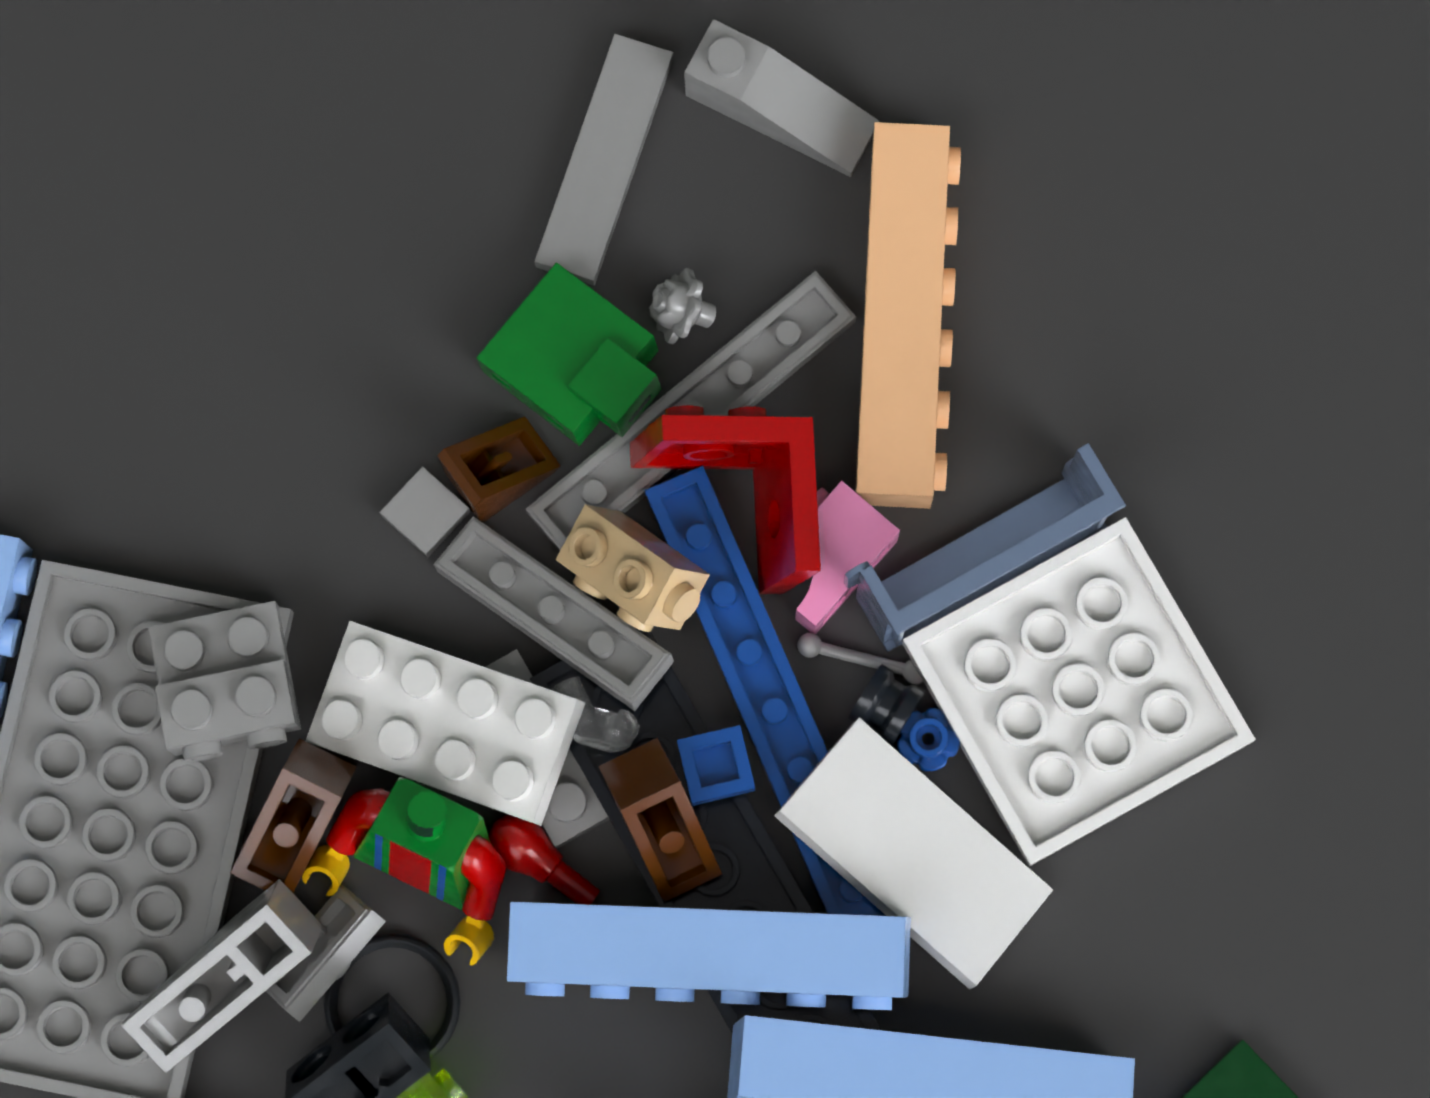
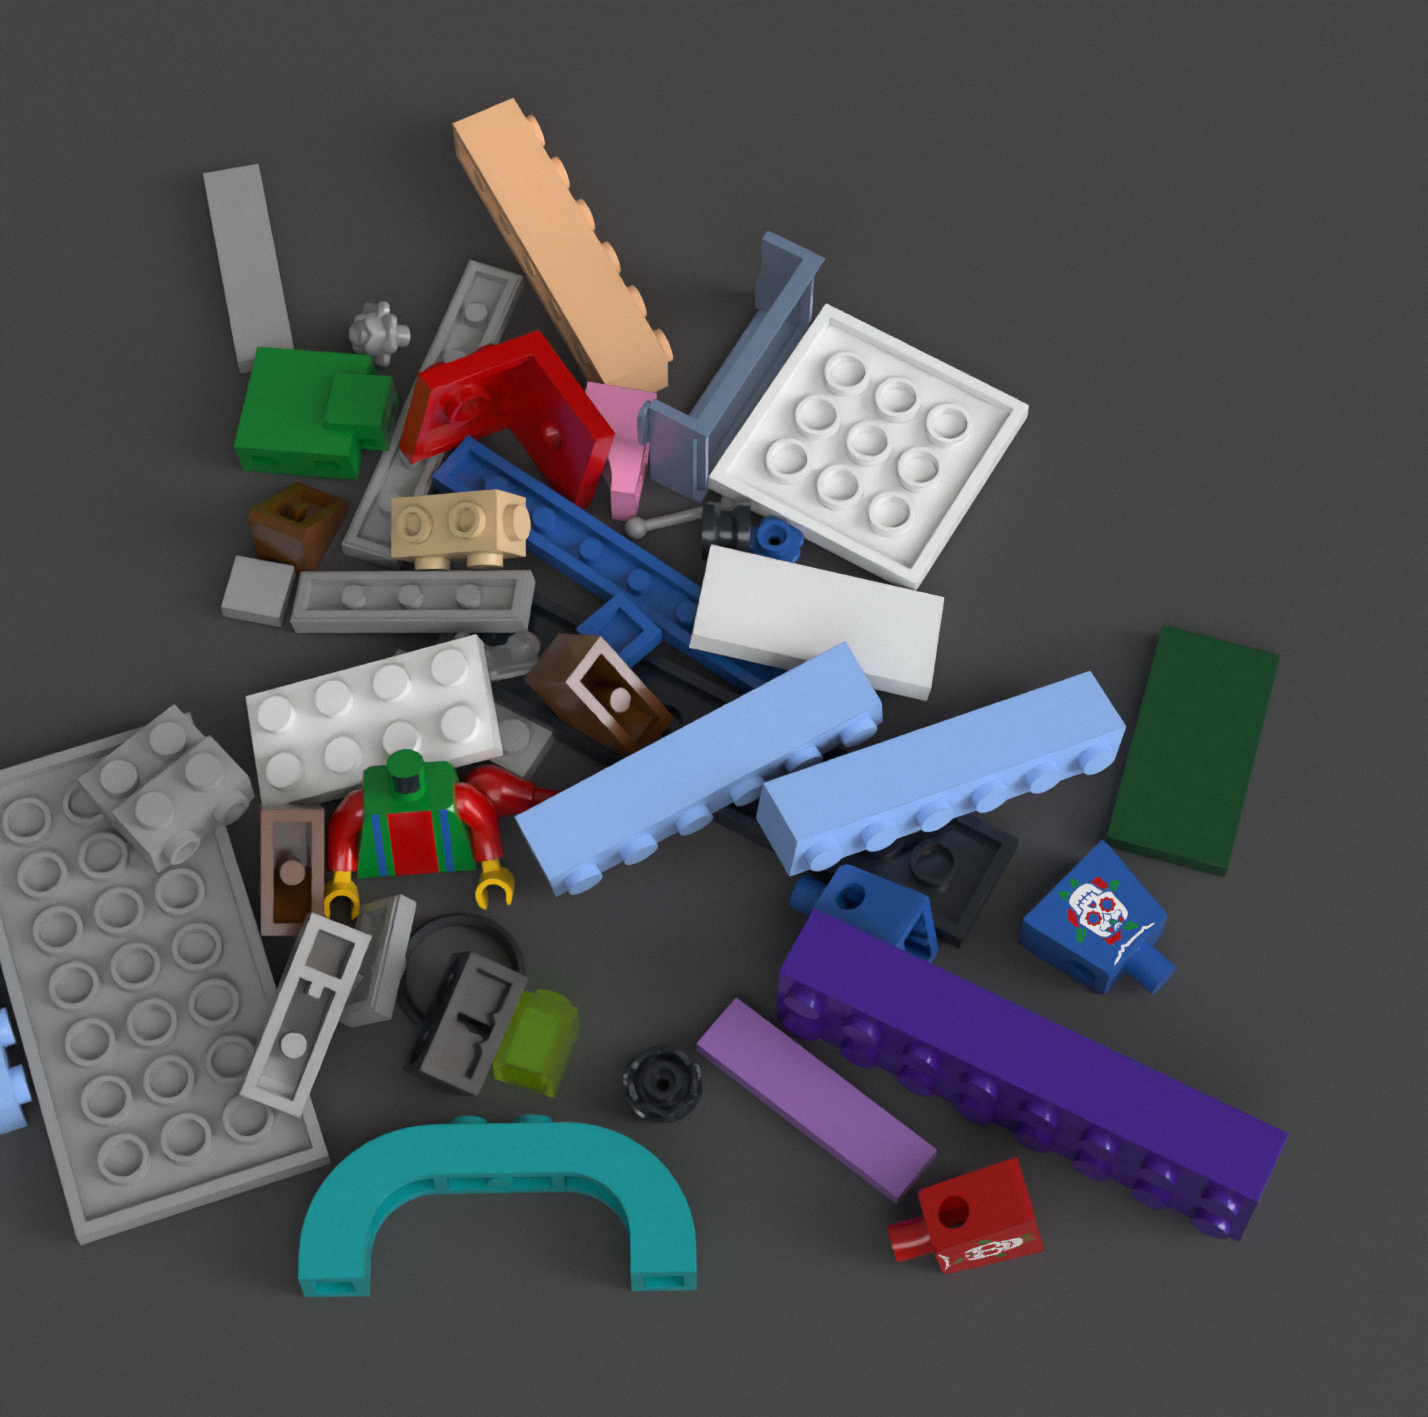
camera: 35 degrees left, 15 degrees down
(777, 98) = (358, 153): light grey slope -> none

